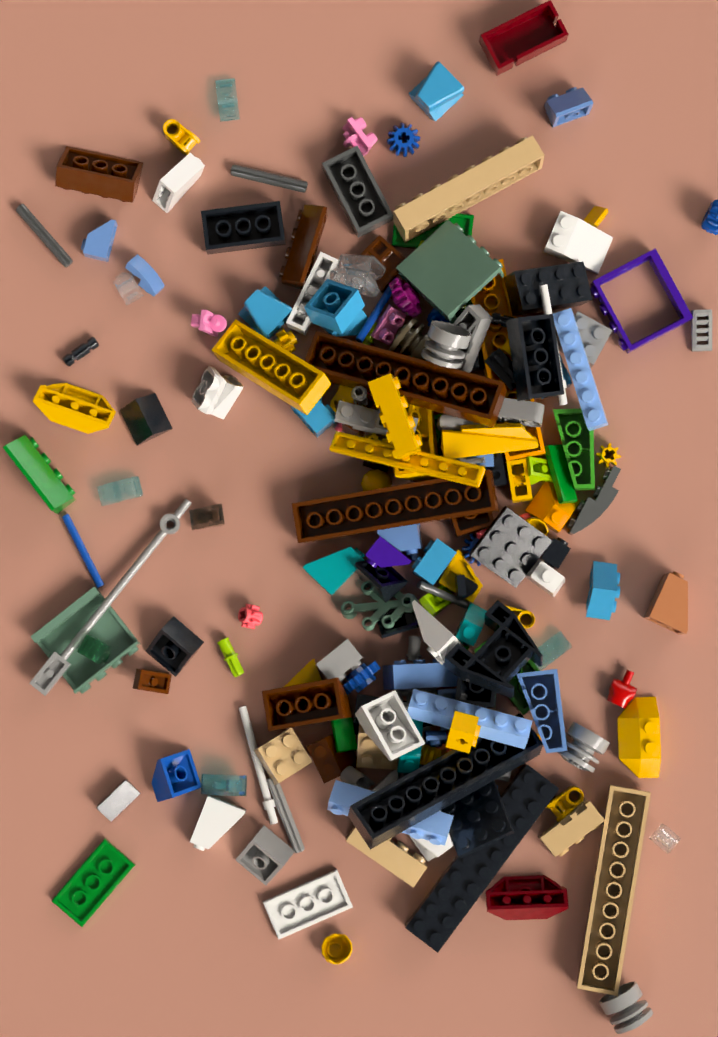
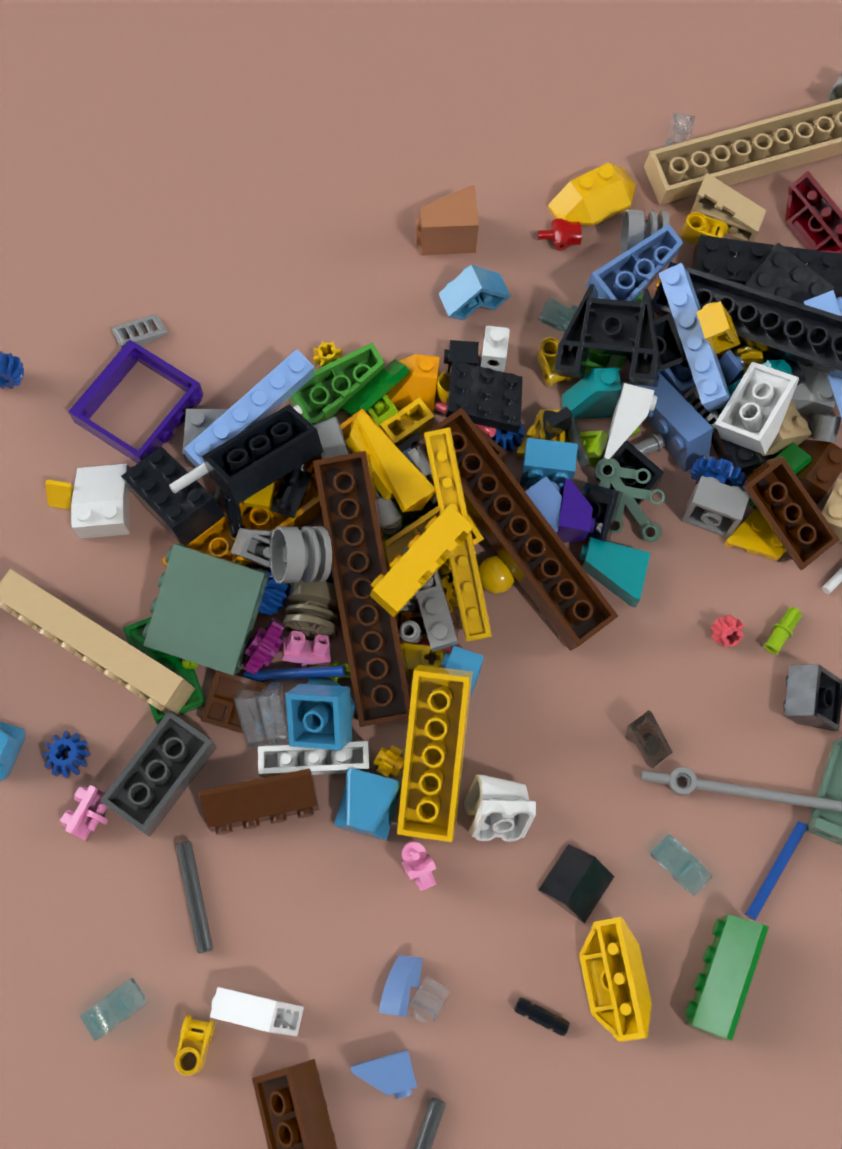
camera: 115 degrees left, 15 degrees down
(243, 227) = (274, 891): black brick -> none
(592, 509) = (388, 340): dark grey slope -> none

